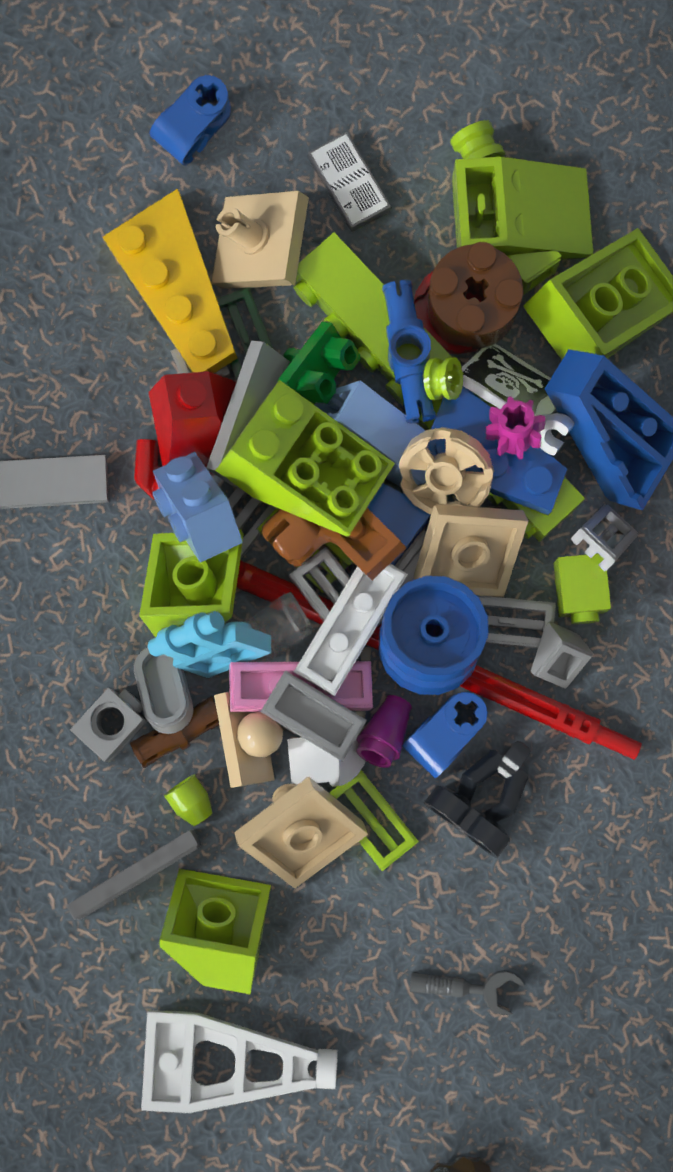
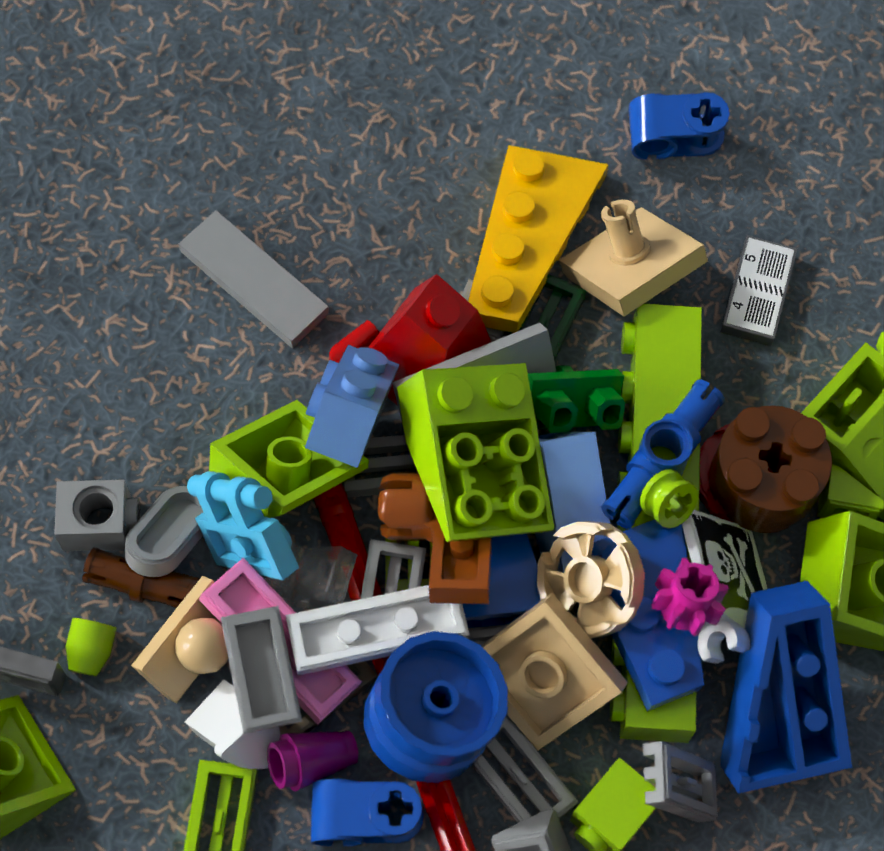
camera: 40 degrees right, 15 degrees down
(300, 831) = (144, 761): tan tile -> none

